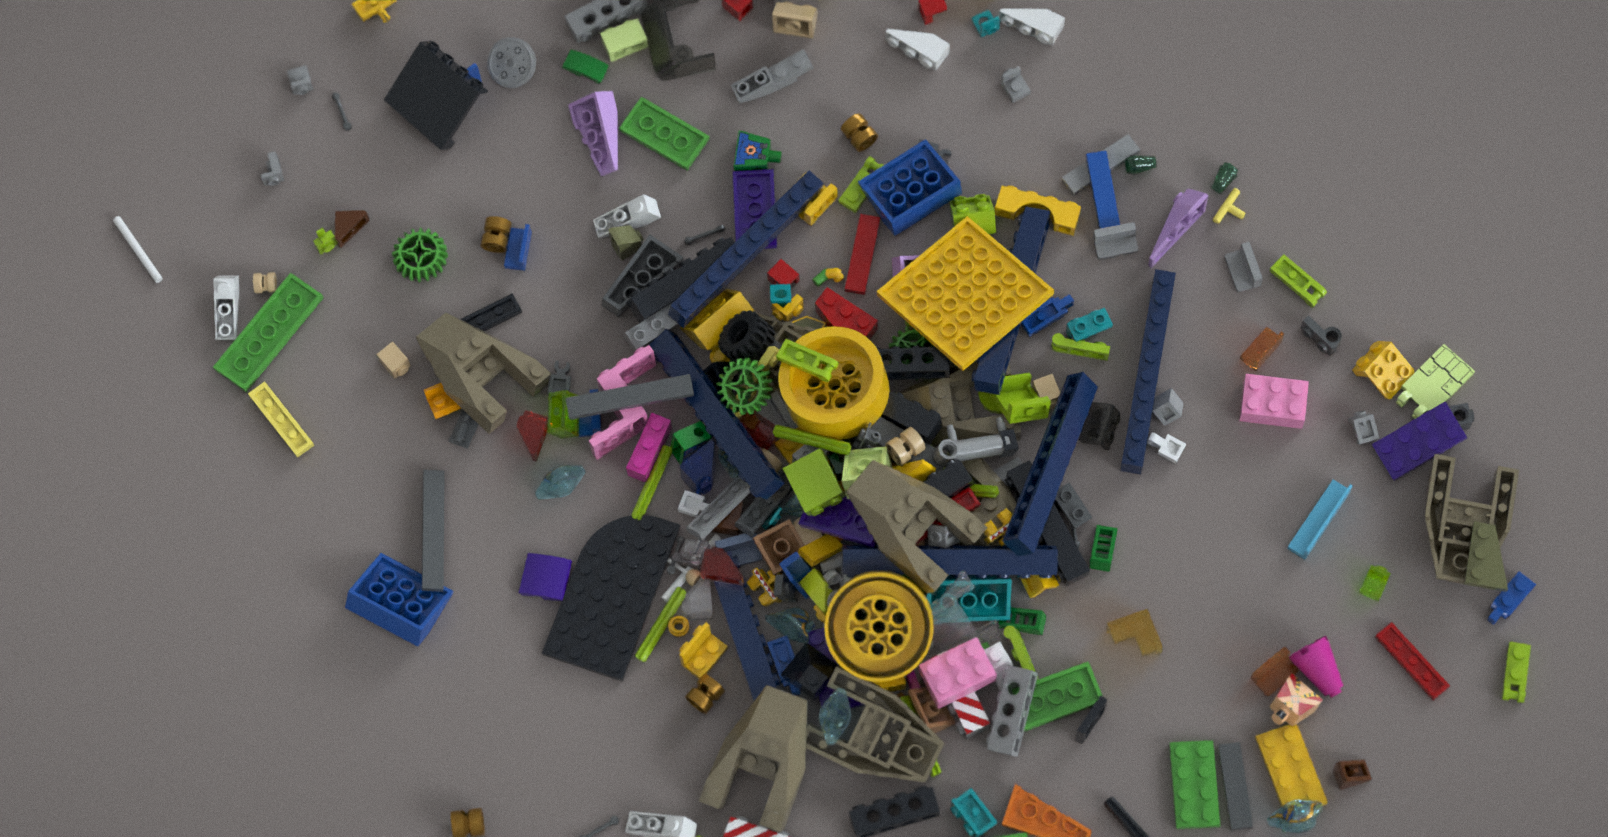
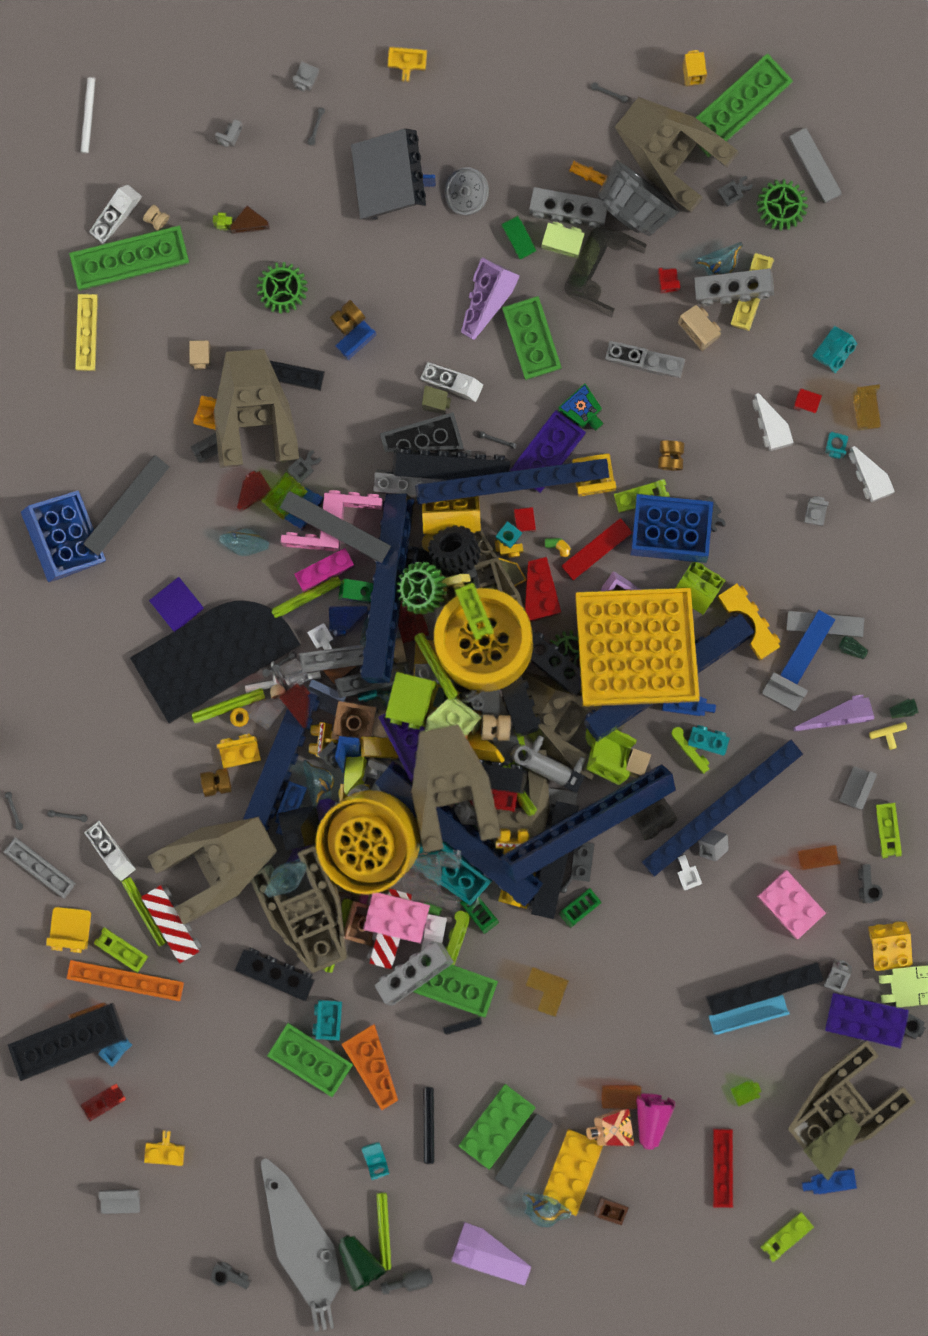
camera: 40 degrees right, 15 degrees up
(1313, 485) = (764, 988): none -> black brick

